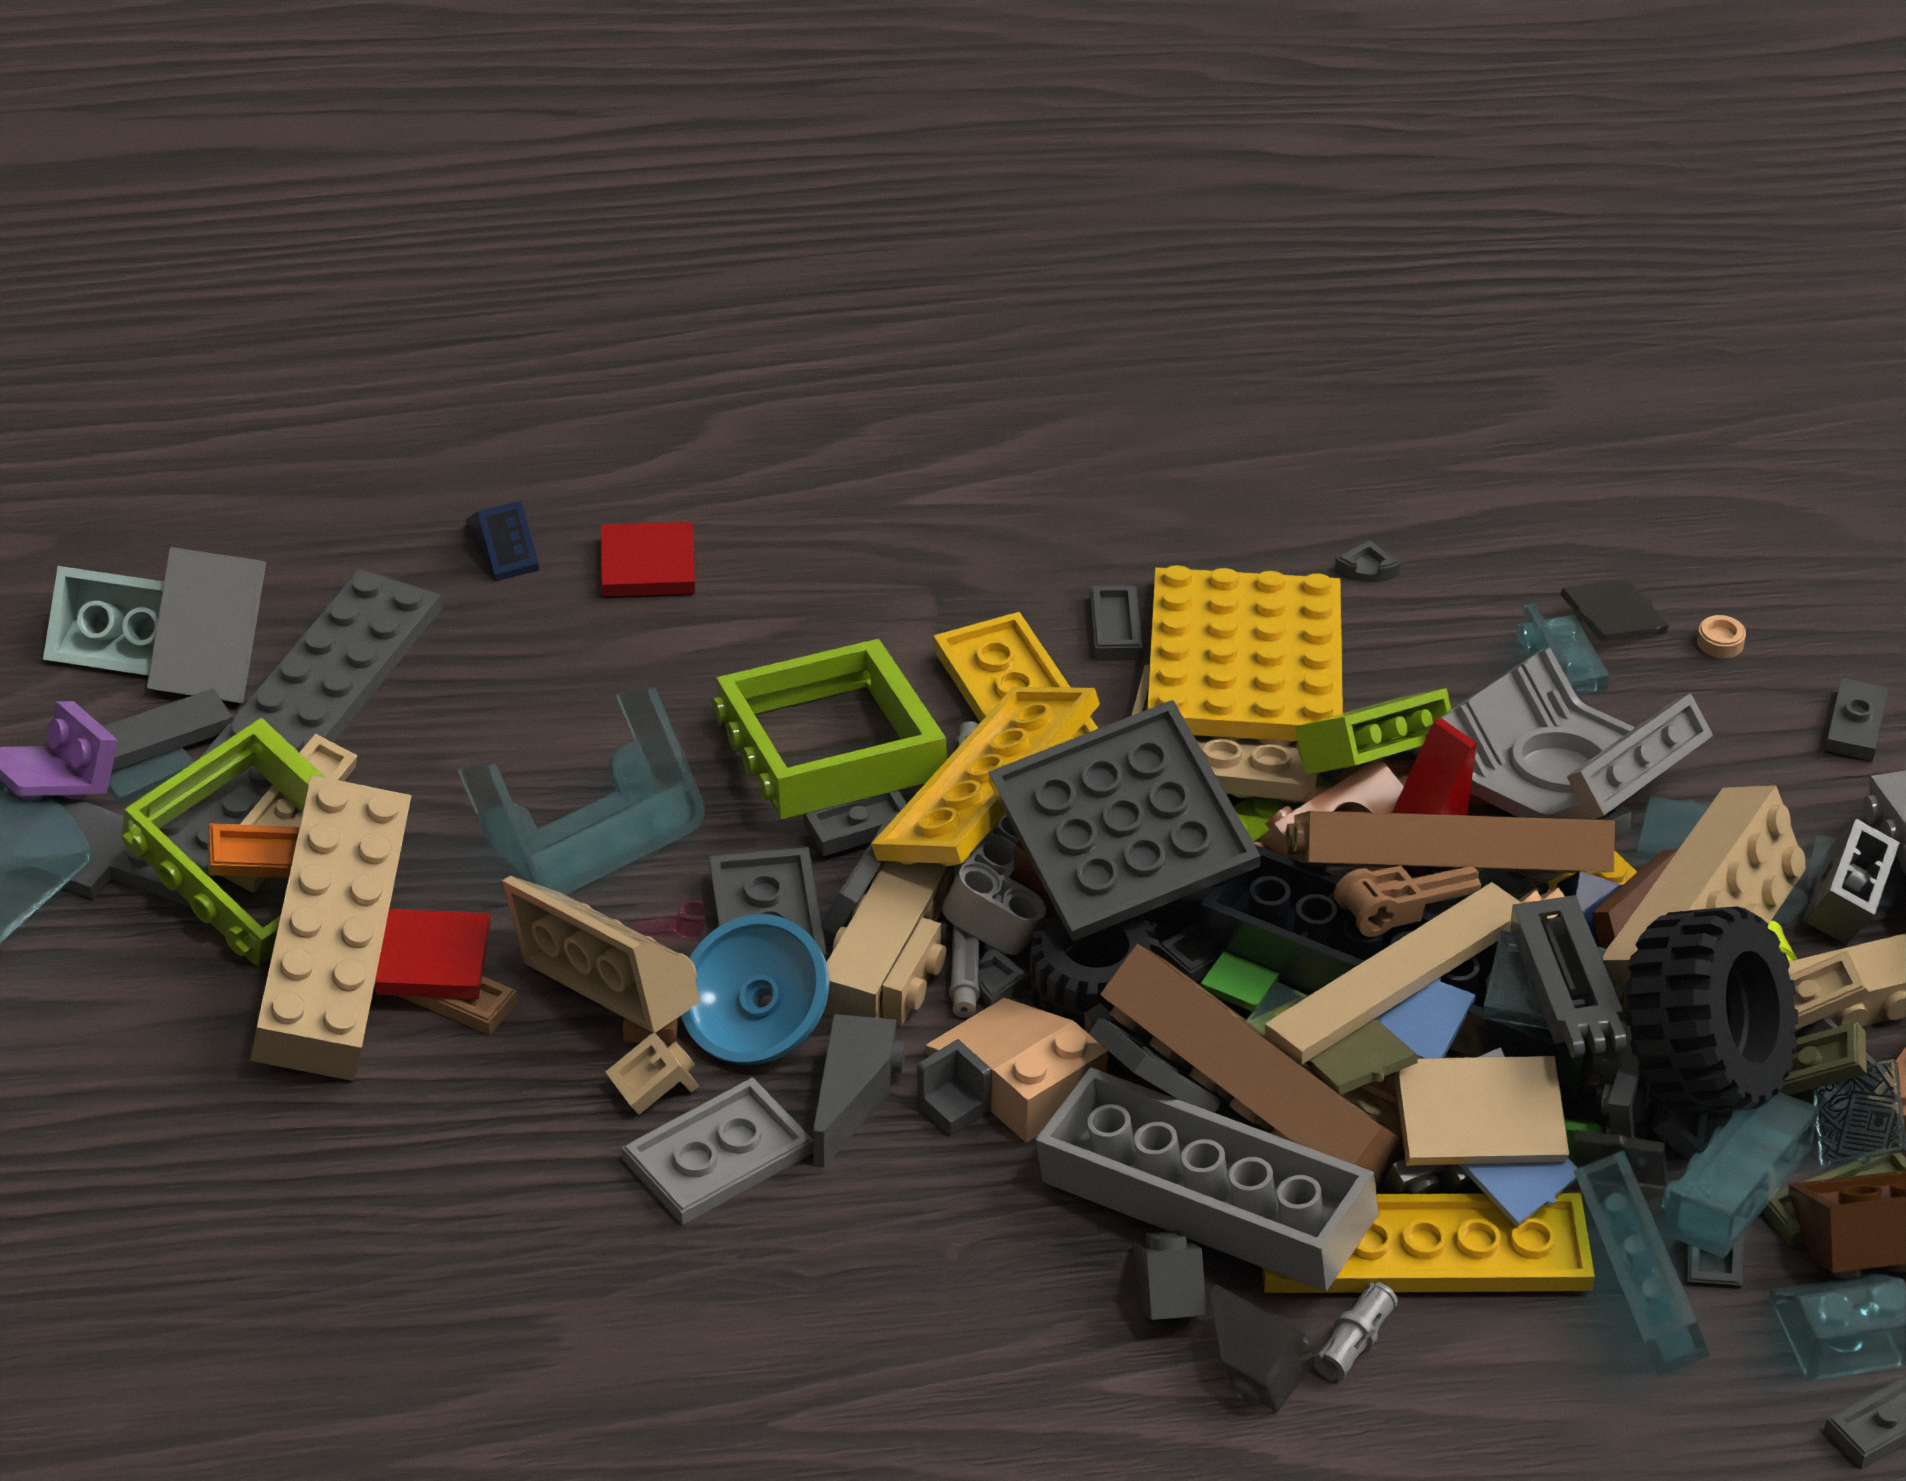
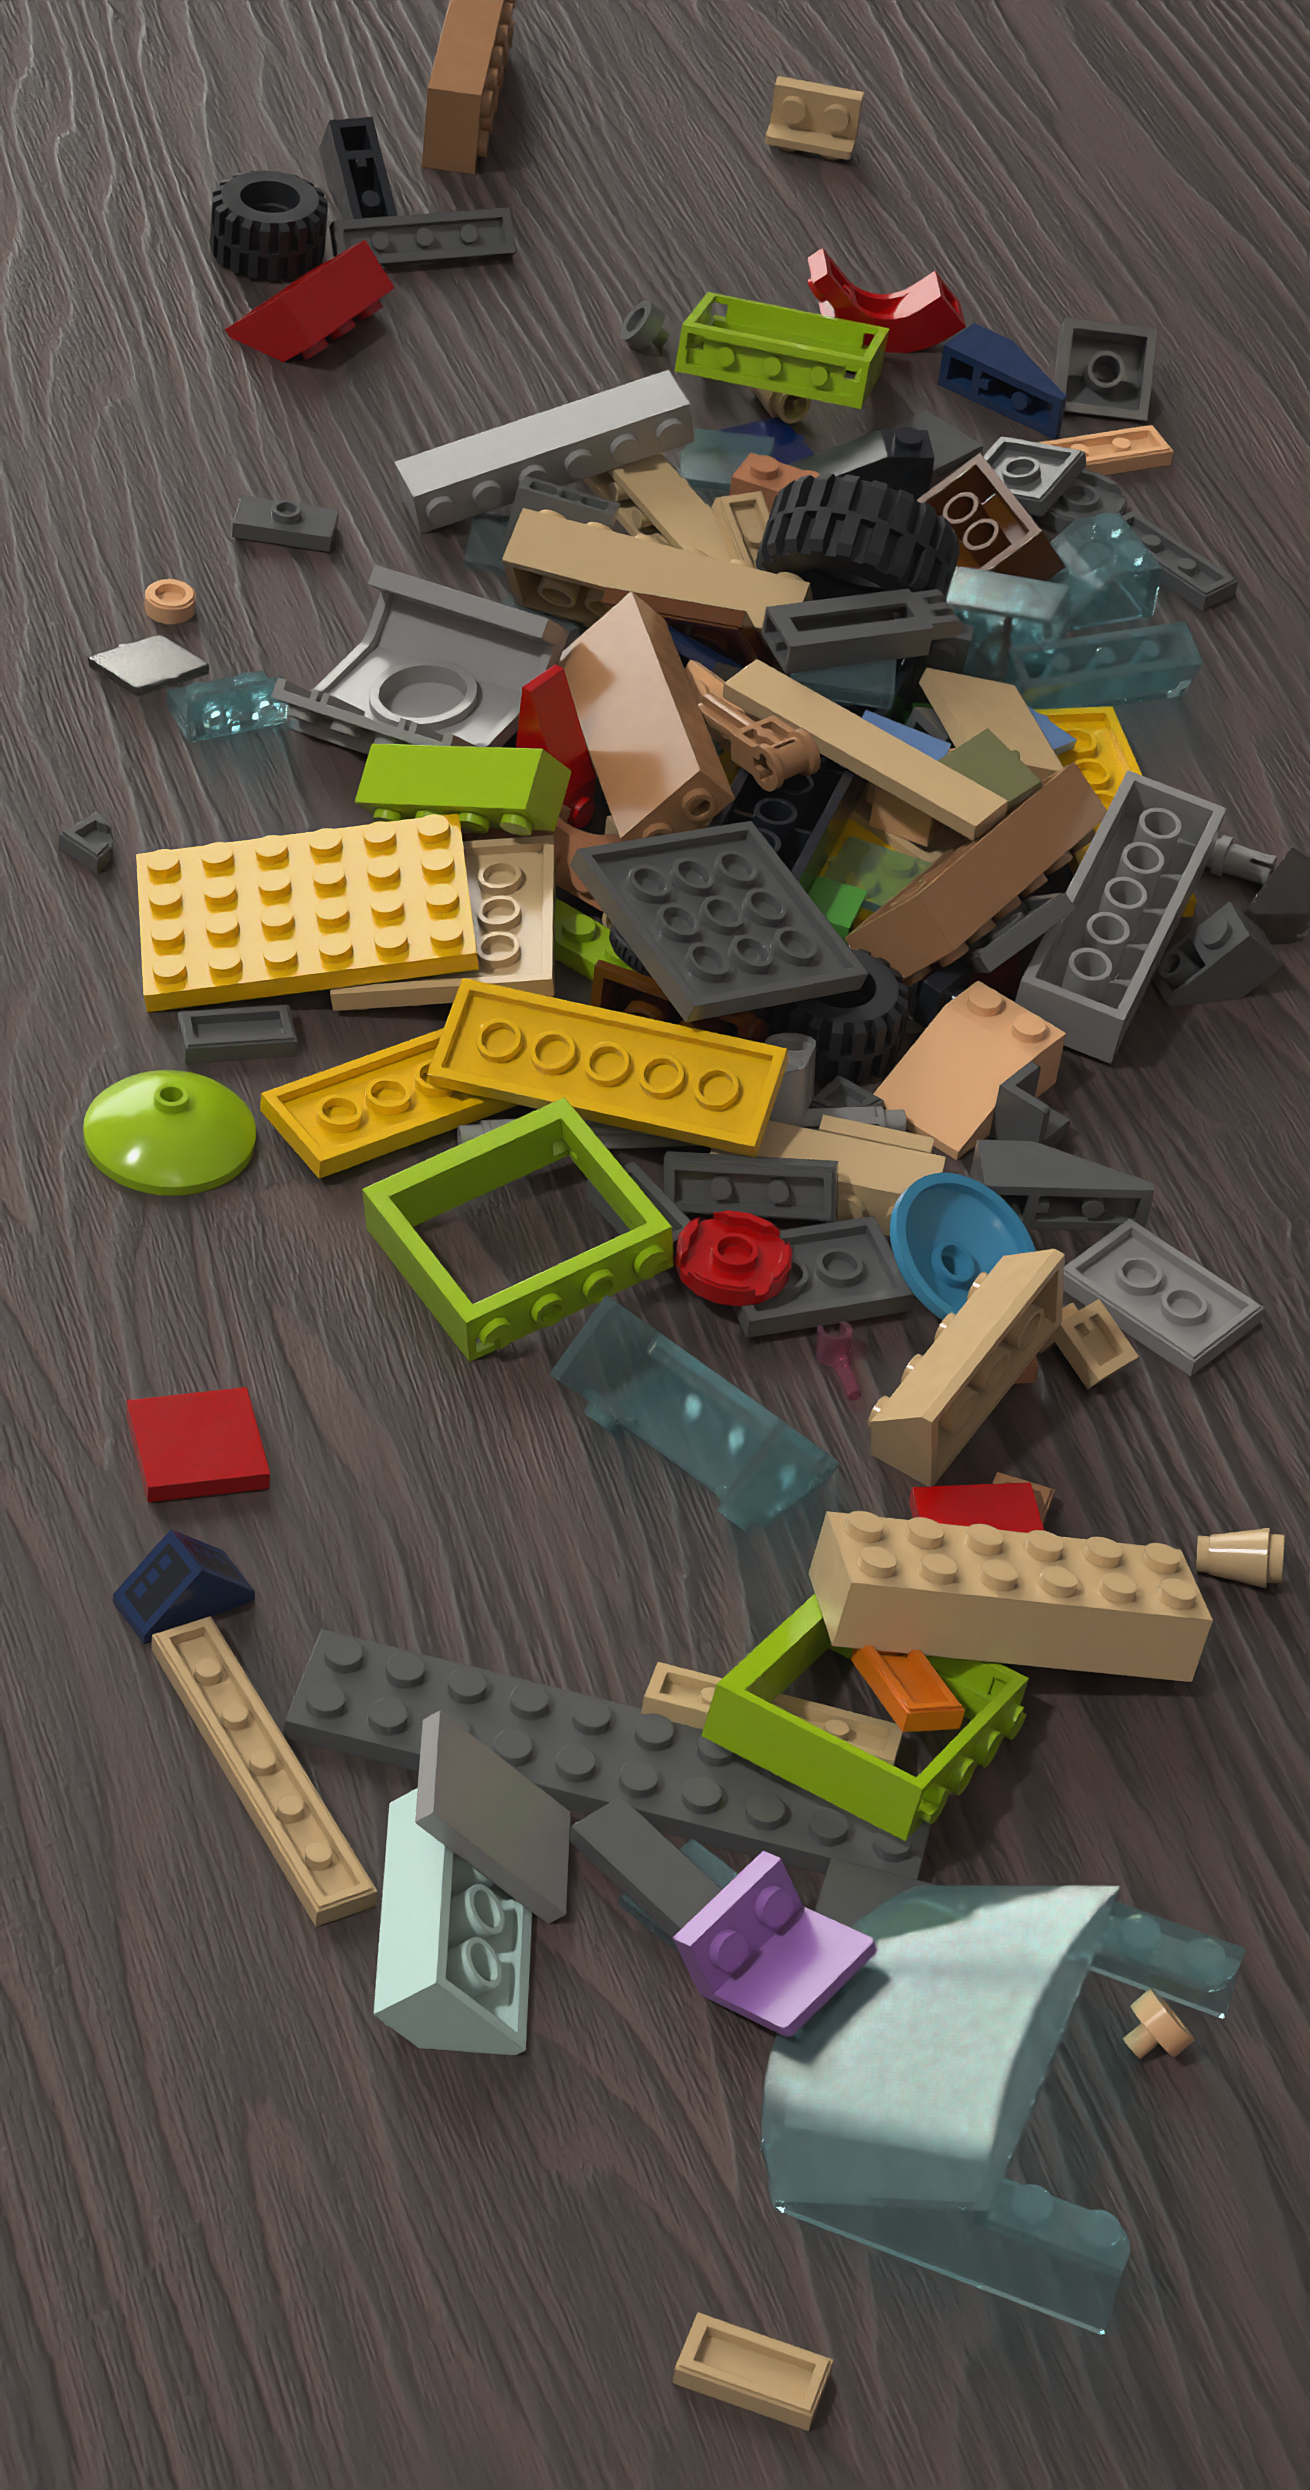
camera: 105 degrees left, 0 degrees up
(374, 552) = (264, 1772): none -> tan tile
(378, 1128) = (1243, 1556): none -> tan cone
(776, 849) = (733, 1258): none -> red tile
(1000, 575) = (169, 1133): none -> lime dish

